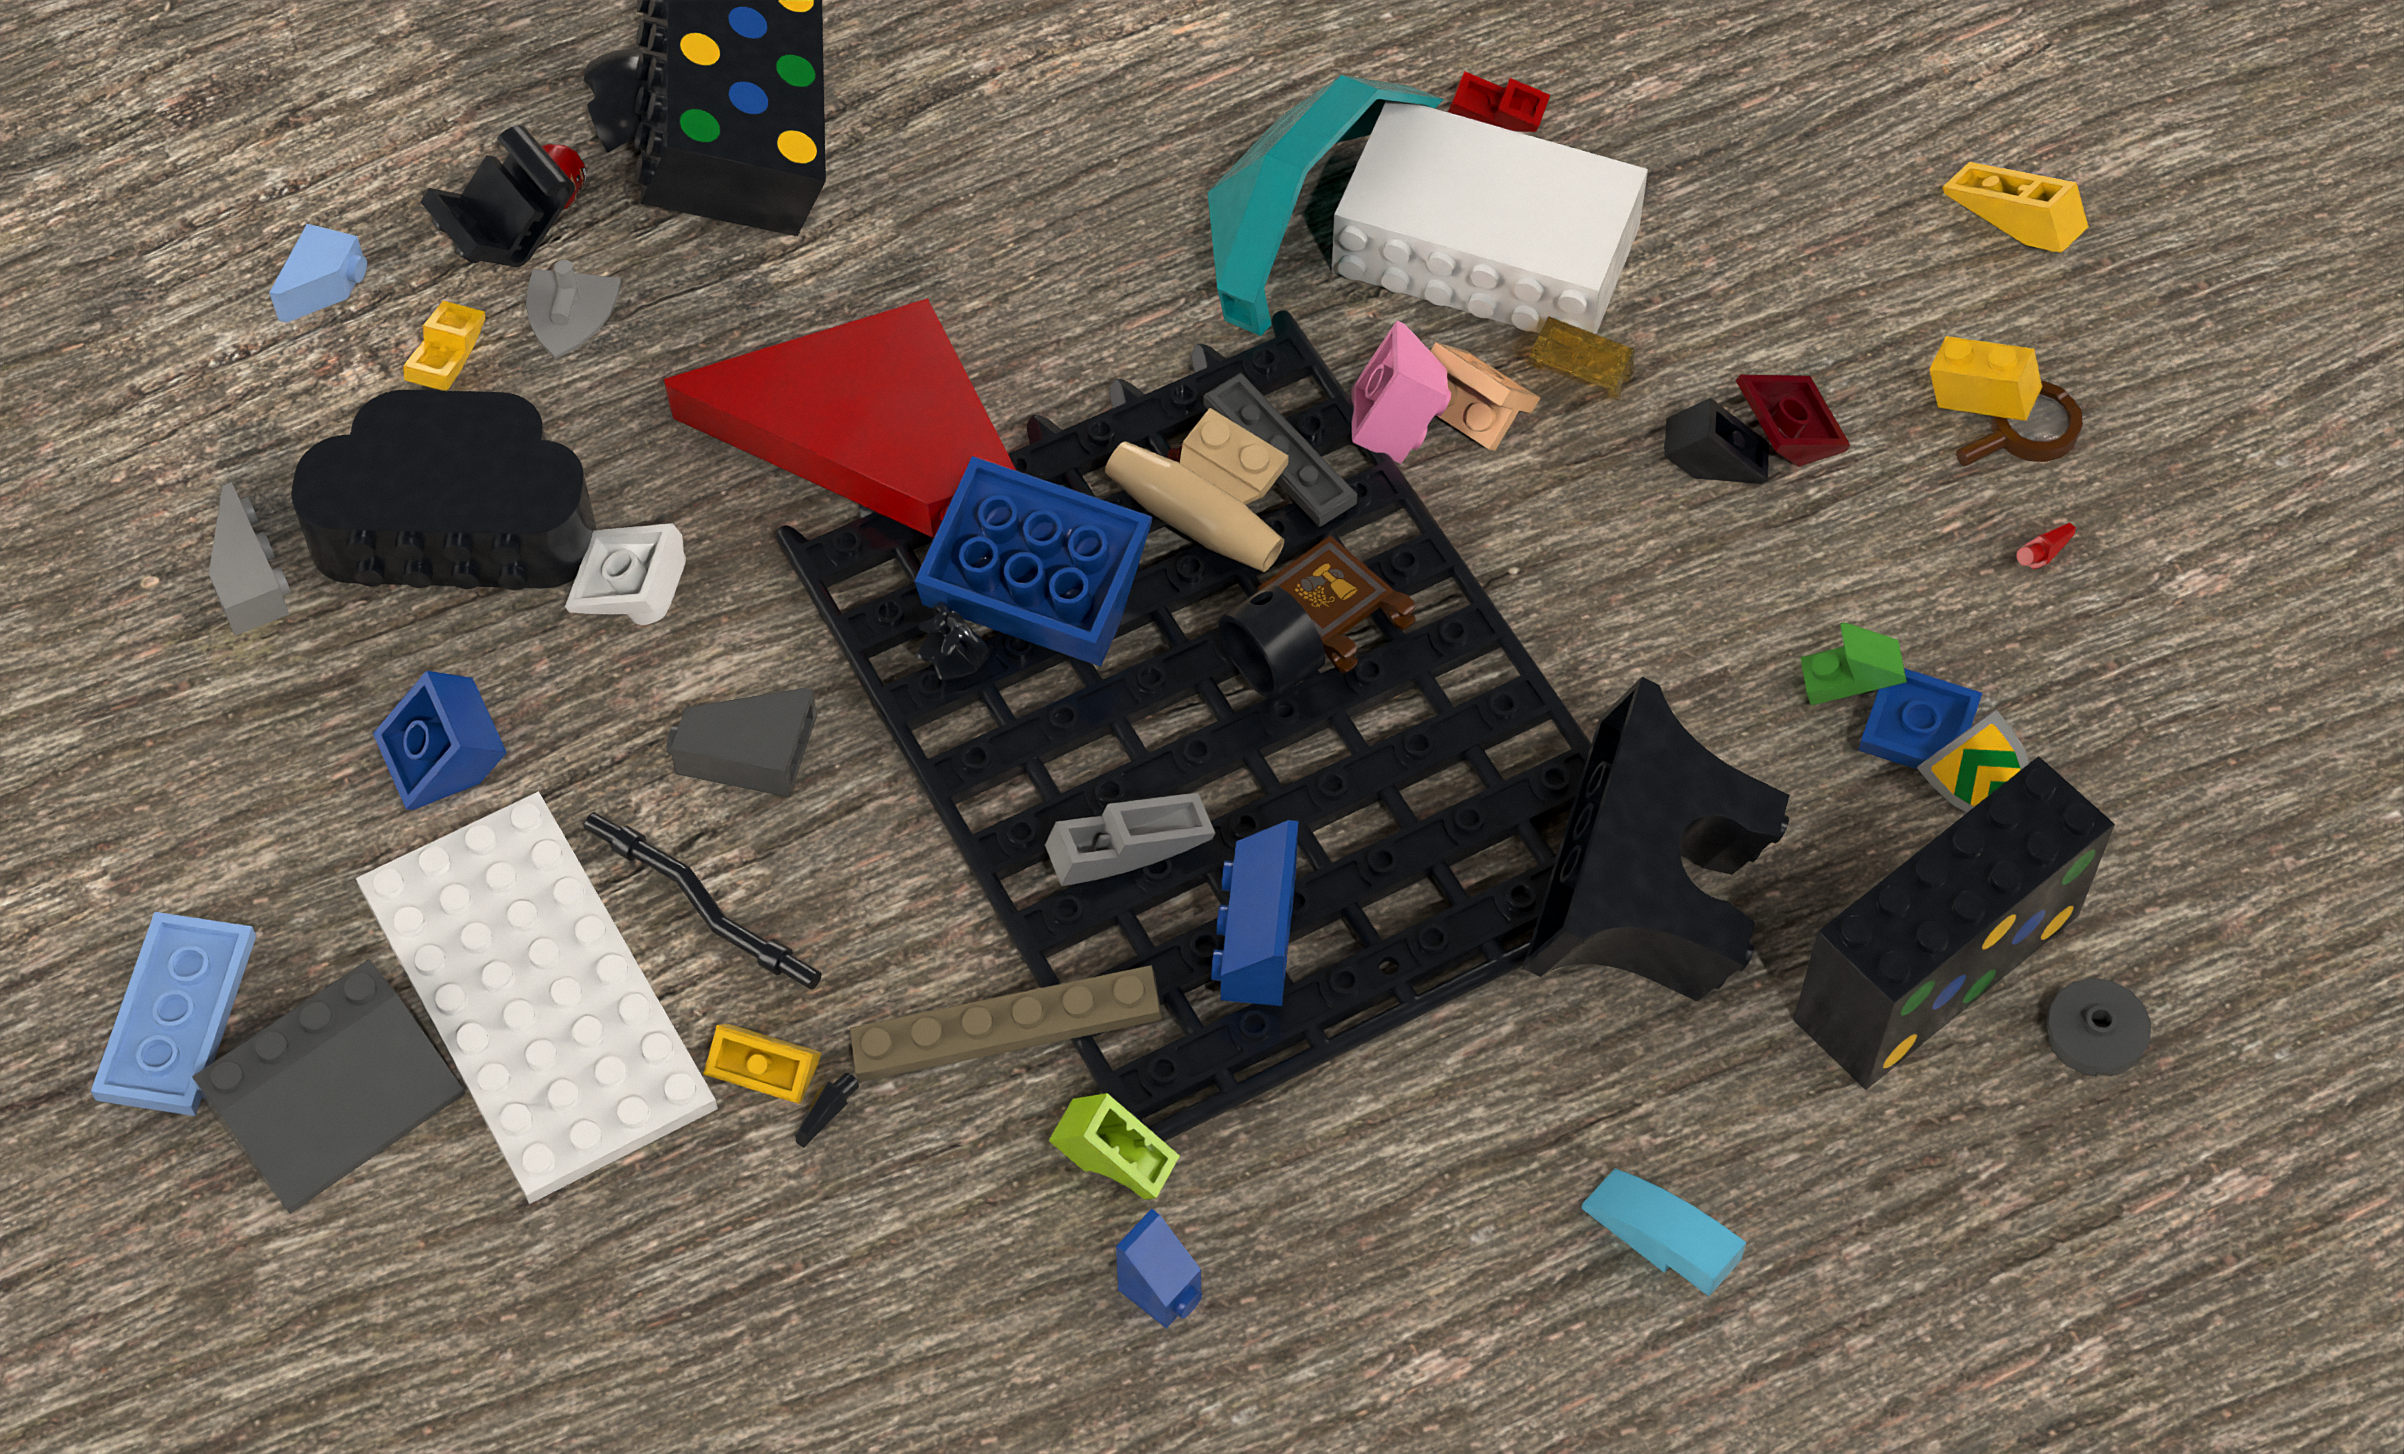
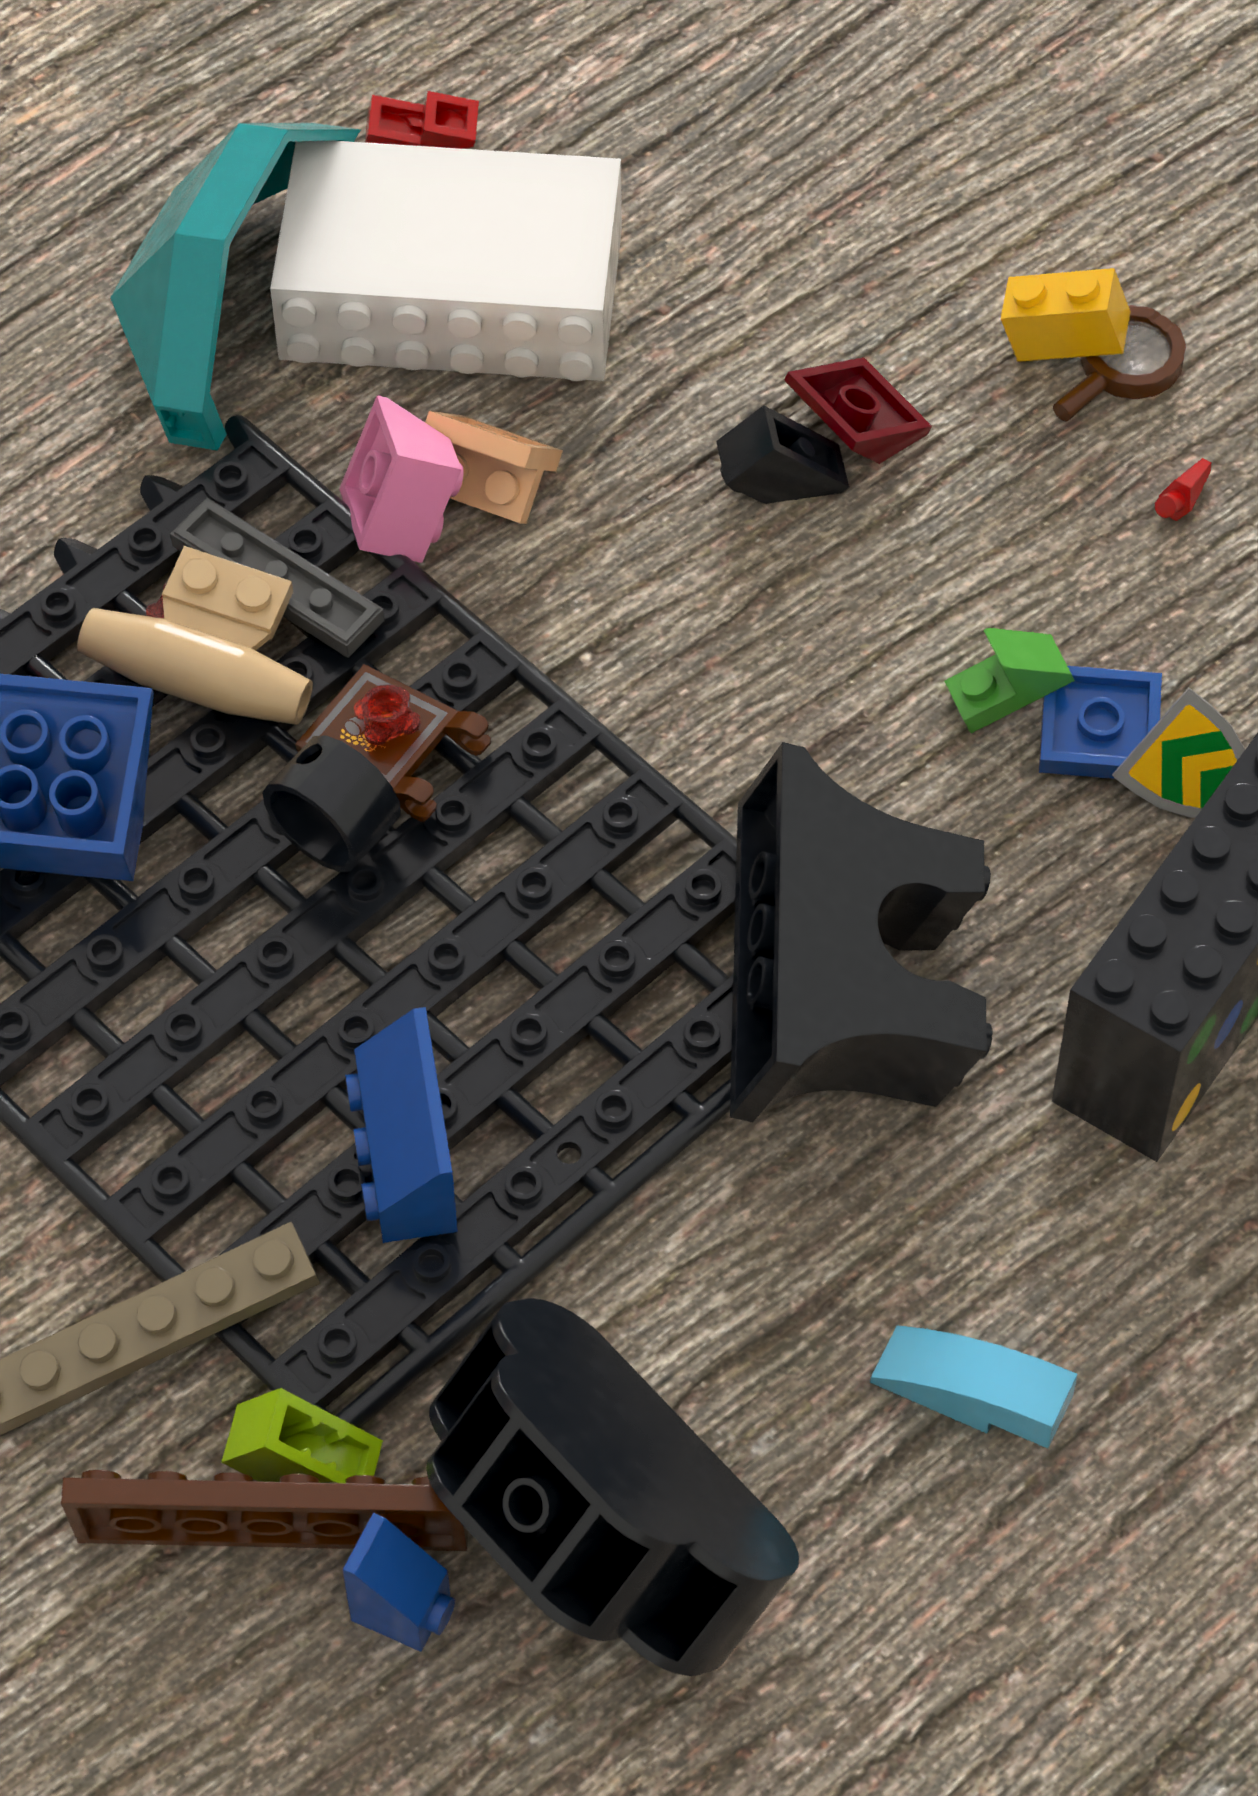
camera: 15 degrees left, 0 degrees up
(1068, 1188) = (253, 1513): none -> reddish brown plate
(1127, 837) = (220, 1076): light grey slope -> none
(1336, 569) = (382, 702): none -> clear red plate
(1336, 1240) = (602, 1494): none -> black brick
(1583, 355) = (600, 390): clear yellow hinge -> none
(2024, 205) = (1048, 111): yellow slope -> none

